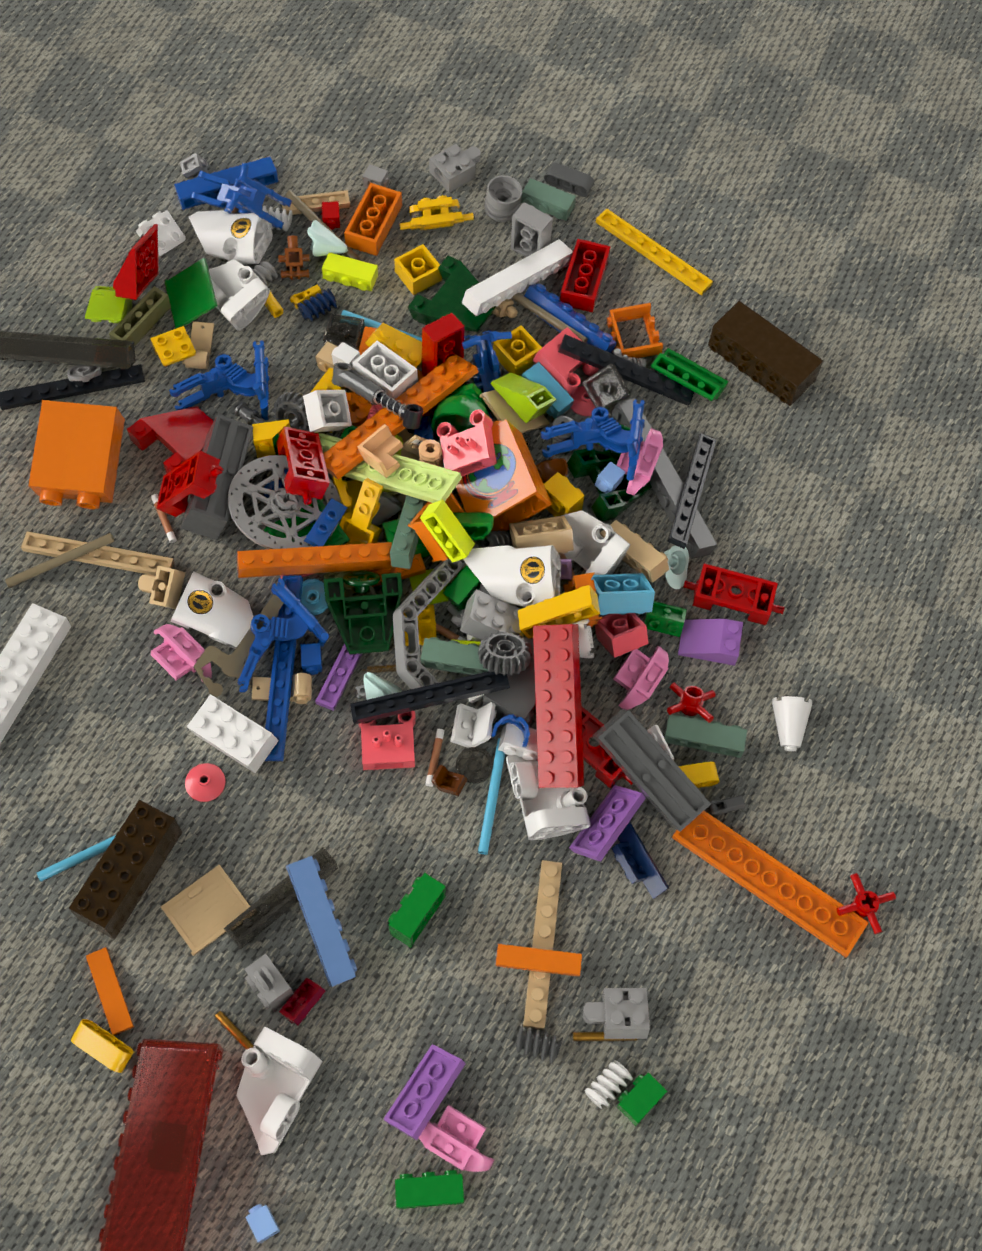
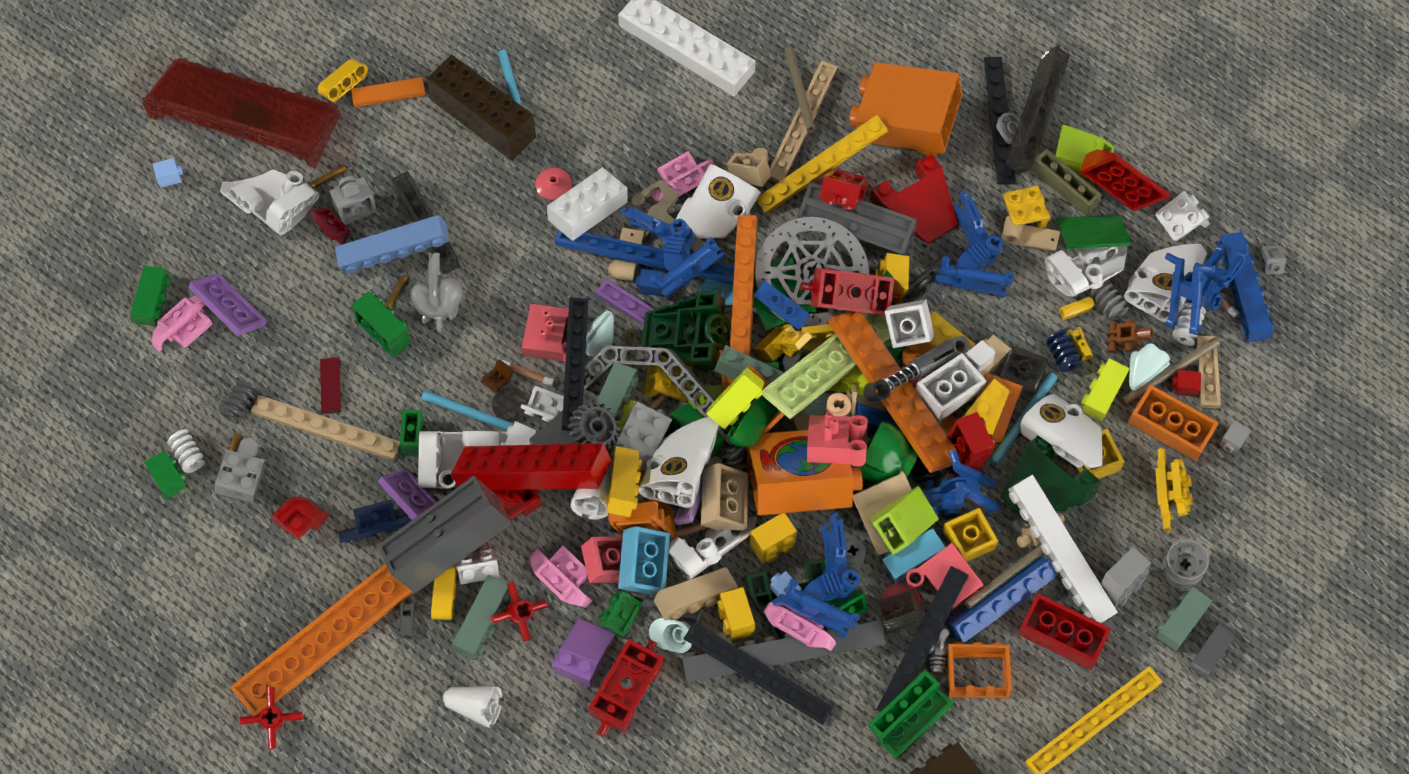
camera: 105 degrees right, 0 degrees up
(153, 517) = (821, 164): none -> yellow plate
(205, 909) = (437, 170): tan piece -> none
(367, 914) = (396, 292): none -> pearl gold bar
(377, 861) = (438, 298): none -> light grey hair
(379, 449) = (846, 356): light nougat panel -> none
(403, 288) = (1072, 437): none -> white panel
(454, 167) = (1243, 524): light grey brick -> none
(486, 953) = (330, 385): none -> dark red tile
(512, 719) = (525, 440): blue helmet -> none
(532, 847) = (411, 425): none -> green brick
(538, 960) = (308, 415): orange tile -> none
(551, 467) = (809, 538): dark orange helmet -> none
(644, 514) = (736, 614): none -> yellow brick
(652, 938) = (298, 516): none -> red brick

